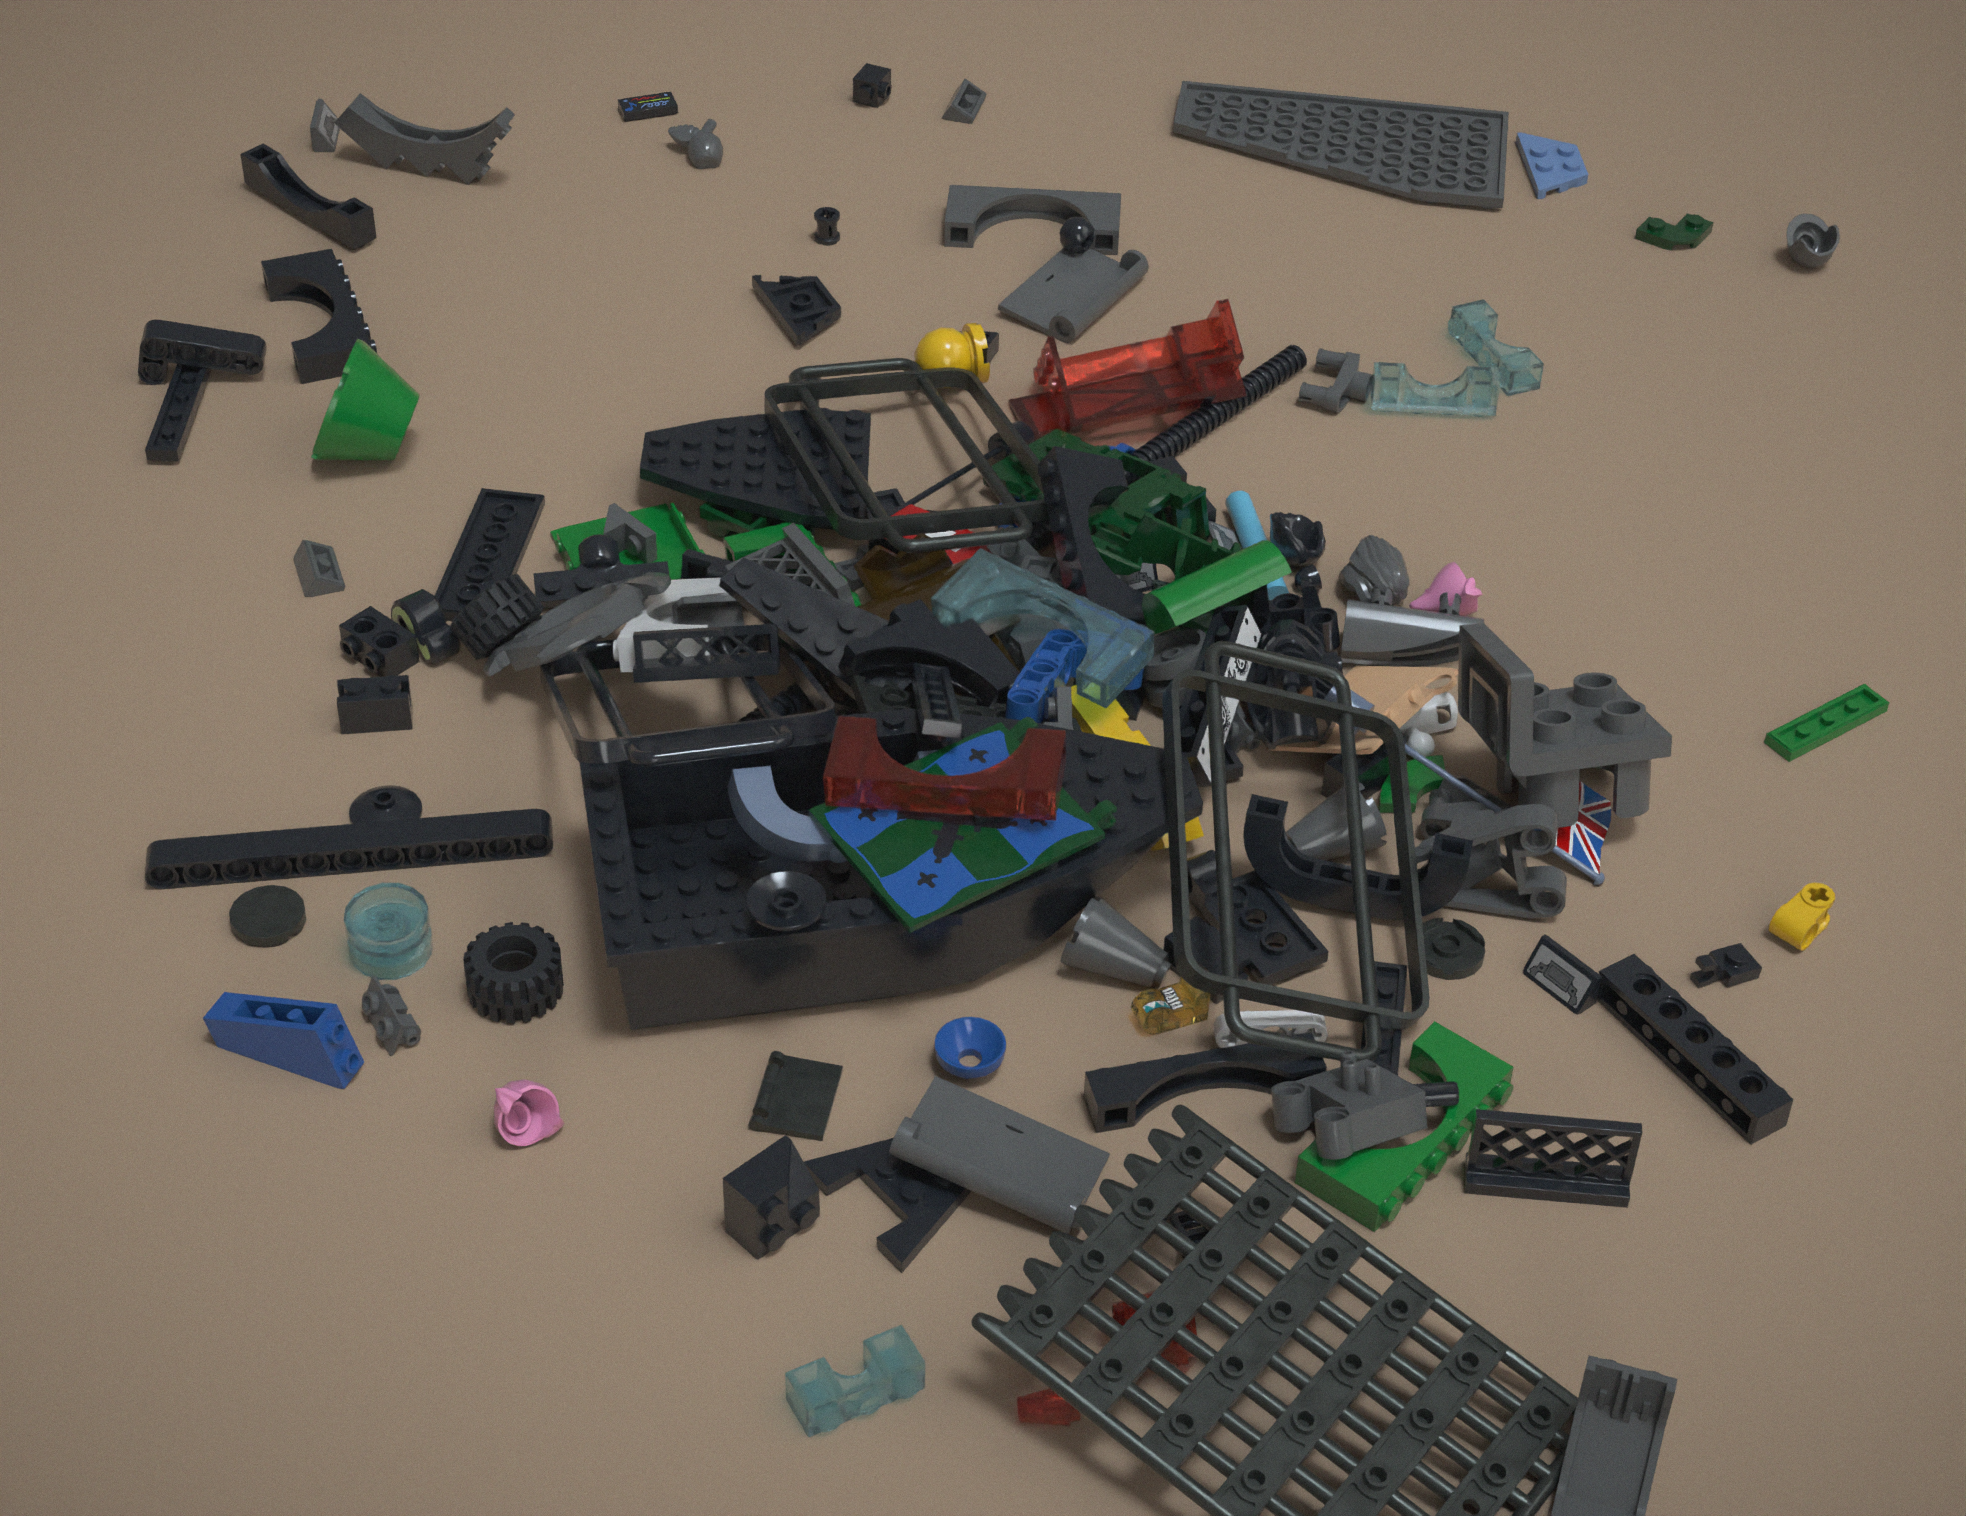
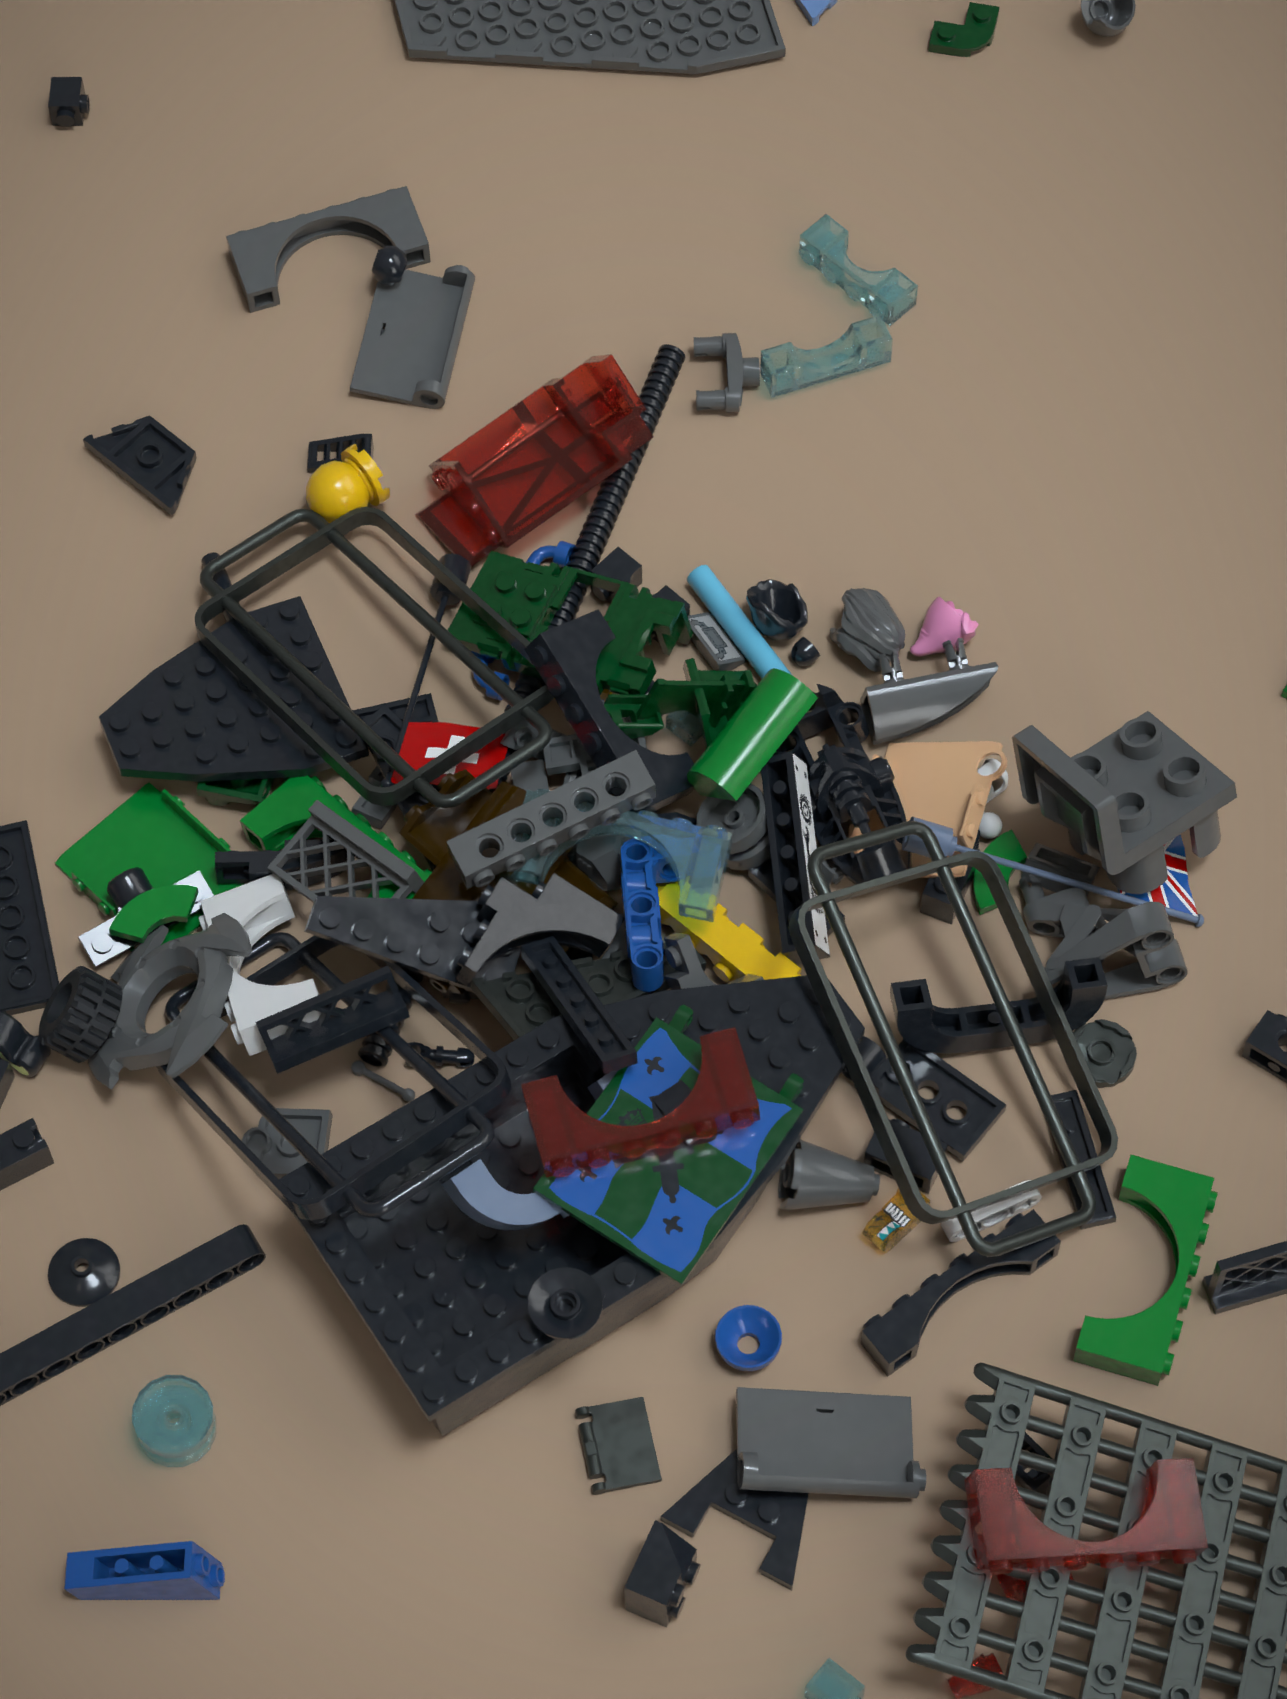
camera: 20 degrees left, 20 degrees up
(267, 915) = (45, 1439): pearl dark grey tile -> none
(389, 1016) = (208, 1499): dark grey hinge -> none
(513, 972) = (303, 1393): black tyre -> none
(526, 1112) = (398, 1565): bright pink hat -> none
(604, 569) = (153, 909): none -> green tile
(630, 534) = (137, 844): dark grey slope -> none
(708, 610) = (279, 932): dark grey panel -> none
(827, 226) = (126, 330): black bush -> none
(964, 103) = (173, 90): dark grey slope -> none
(989, 567) = (530, 818): none -> dark grey brick
(1302, 1312) = (1012, 1537): none -> clear red arch
(1325, 829) = (952, 964): dark grey cone -> none
(1356, 1105) = (1106, 1274): dark grey piece -> none
(1563, 975) = (1211, 1049): slope -> none

